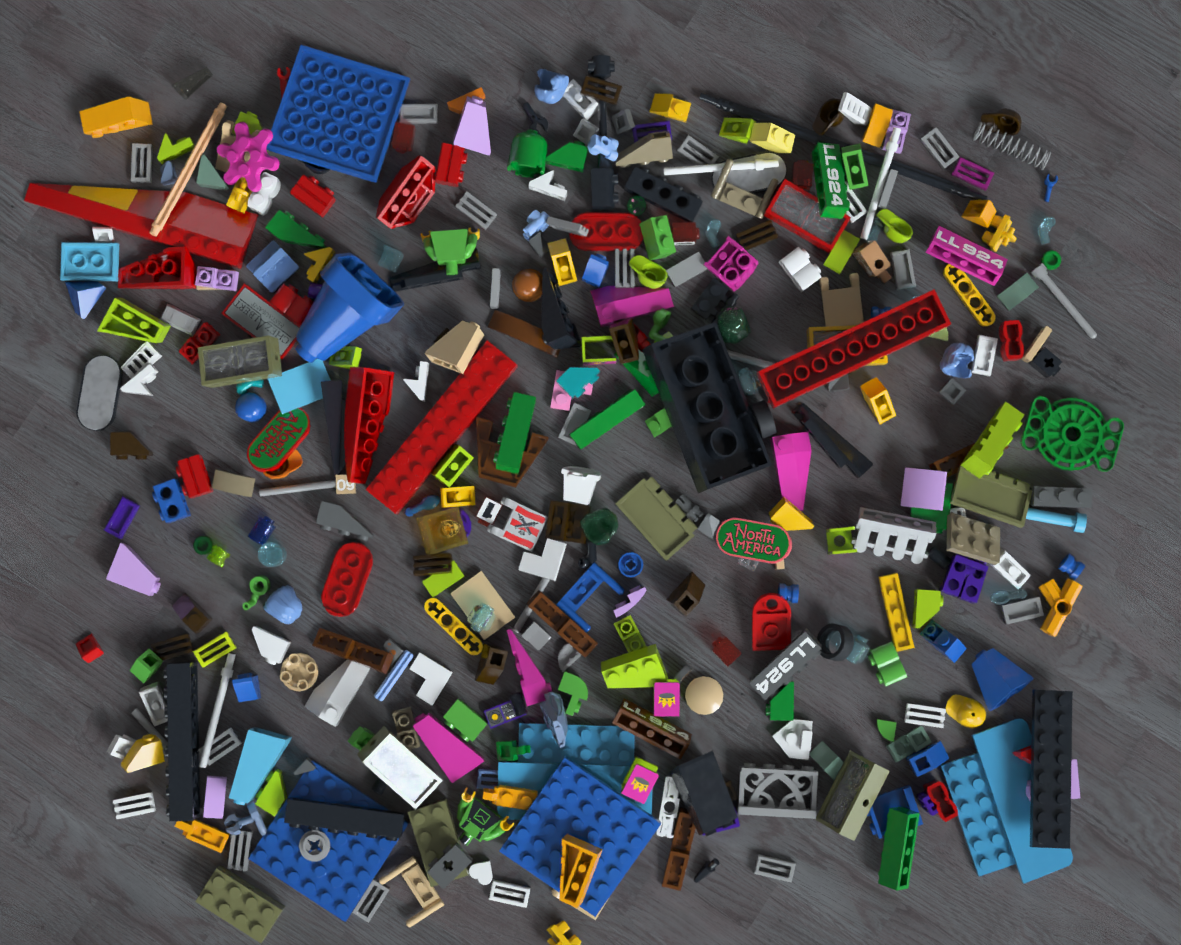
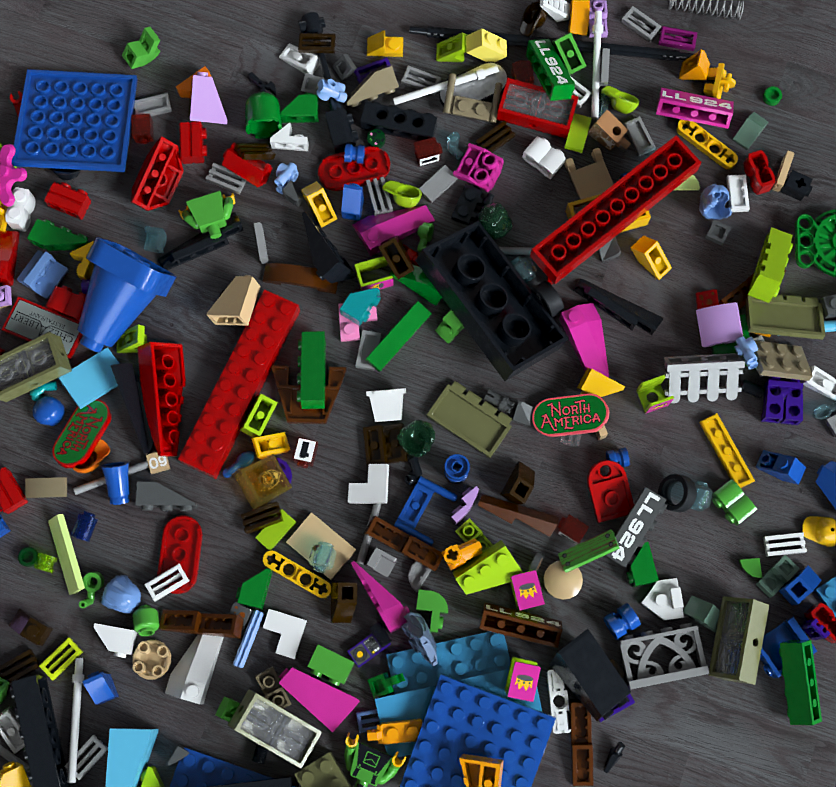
camera: 15 degrees left, 10 degrees down
(239, 552) = (66, 554): none -> yellowish green tile
(272, 554) = (99, 547): clear light blue wheel -> none
(301, 635) = (145, 620): none -> bright green head
(302, 495) = (117, 482): none -> blue plant
(345, 599) = (152, 591): none -> white tile
(410, 632) = (255, 590): none -> green slope
(419, 386) = (208, 350): white slope -> none
(421, 52) = (142, 51): none -> bright green brick
(499, 204) = (253, 171): none -> red brick
(509, 189) = (254, 151): none -> dark brown tile
(521, 526) = (341, 458): flag -> none
(528, 285) = (292, 233): dark orange helmet -> none
(551, 86) = (270, 51): medium blue hair -> none
(567, 226) = (315, 169): light grey tile -> none
(610, 219) = (354, 153): none -> blue wheel
(610, 649) = (458, 554): none -> light orange piece
(657, 237) = (403, 159): bright green brick -> none
(670, 619) = (509, 511): none -> reddish brown slope
(734, 676) = (588, 551): none -> bright green tile
(748, 749) = (623, 620): none -> blue wheel
(762, 857) = (681, 745): light grey tile -> none
(920, 458) = (706, 298): none -> red slope
(926, 605) = (753, 437): lime slope -> none
(941, 520) = (747, 348): none -> light blue plate
(1041, 273) = (767, 108): light grey piece -> none
(1043, 229) = (757, 70): clear light blue arm -> none
(1049, 184) = (750, 31): blue hand -> none

